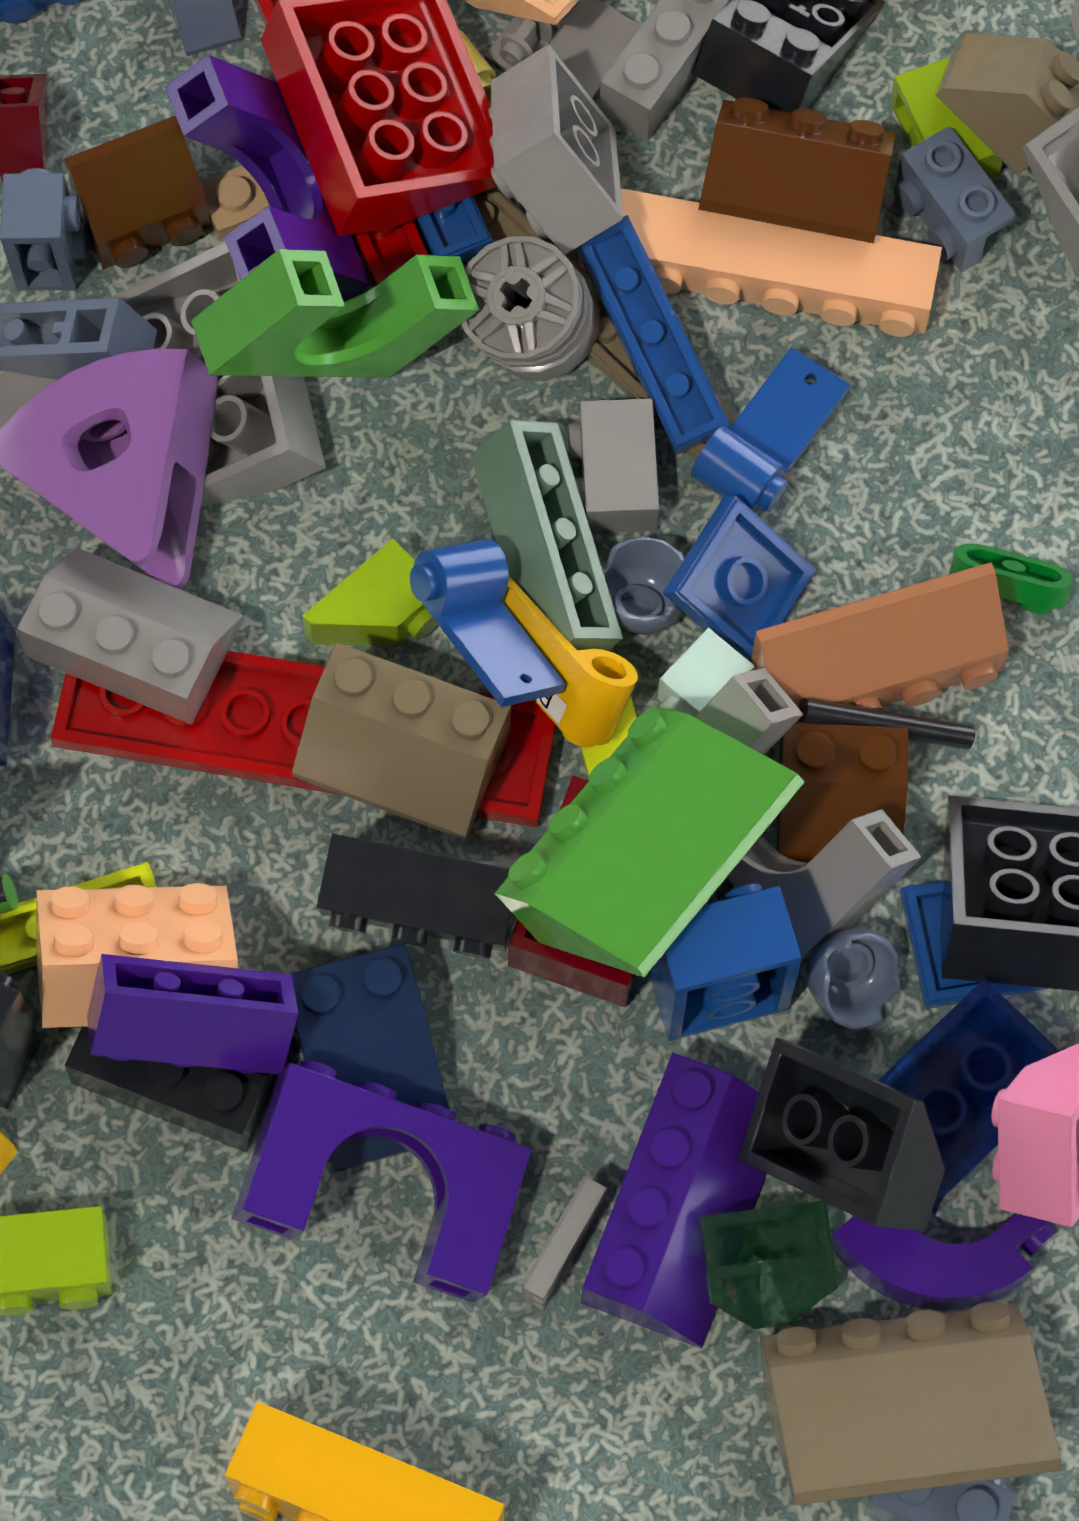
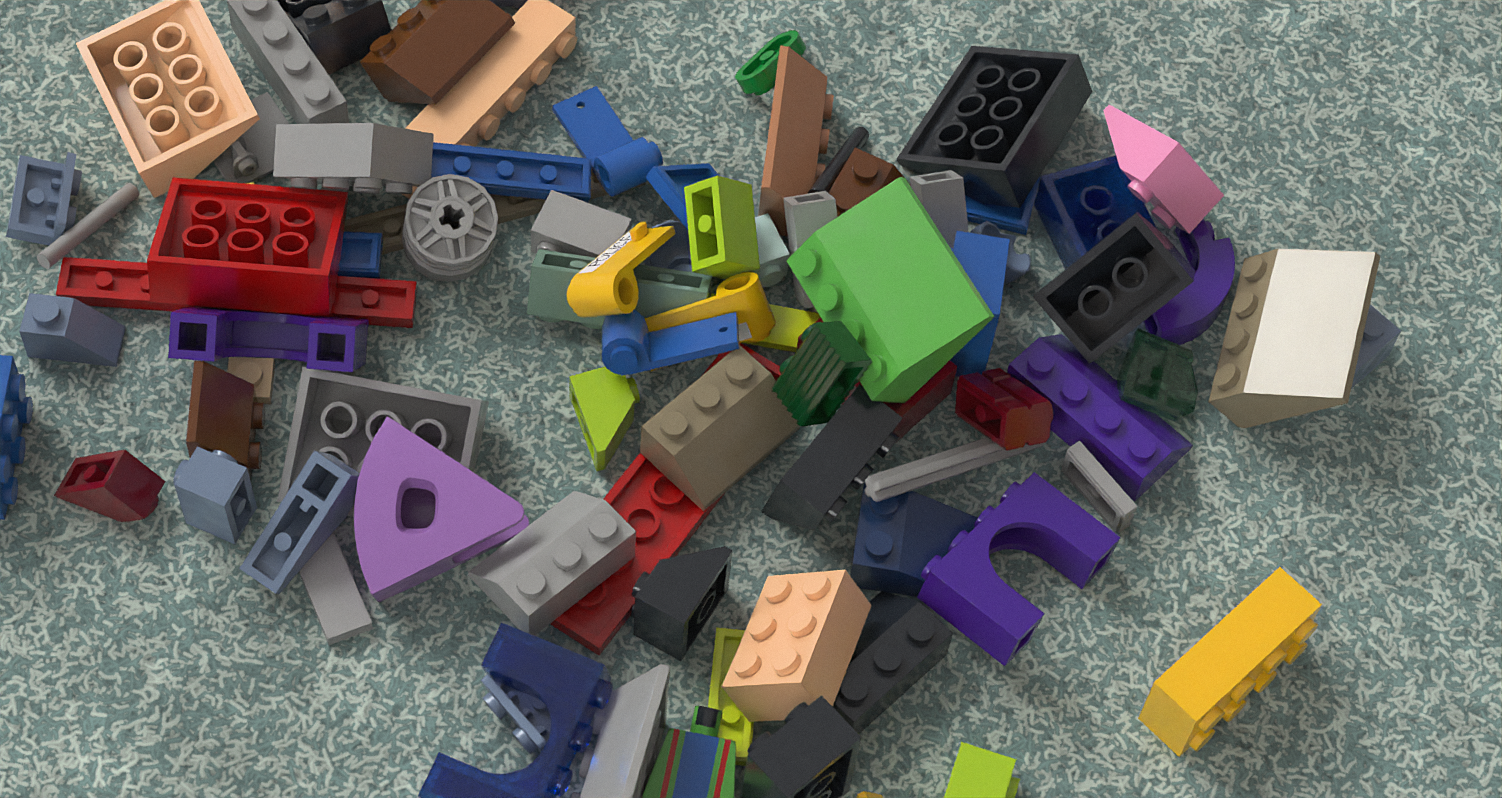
camera: 70 degrees left, 10 degrees down
(141, 798) = (680, 598): none -> black slope
(191, 1014) = (868, 615): dark purple brick -> none
(295, 323) = (411, 322): bright green arch -> none
(496, 1043) = (938, 468): none -> light grey axle
(501, 814) = (820, 373): none -> dark green brick
(514, 510) = (609, 282): none -> yellow door
(605, 1074) = (1003, 409): none -> dark red brick
(676, 614) = (721, 227): none -> lime brick

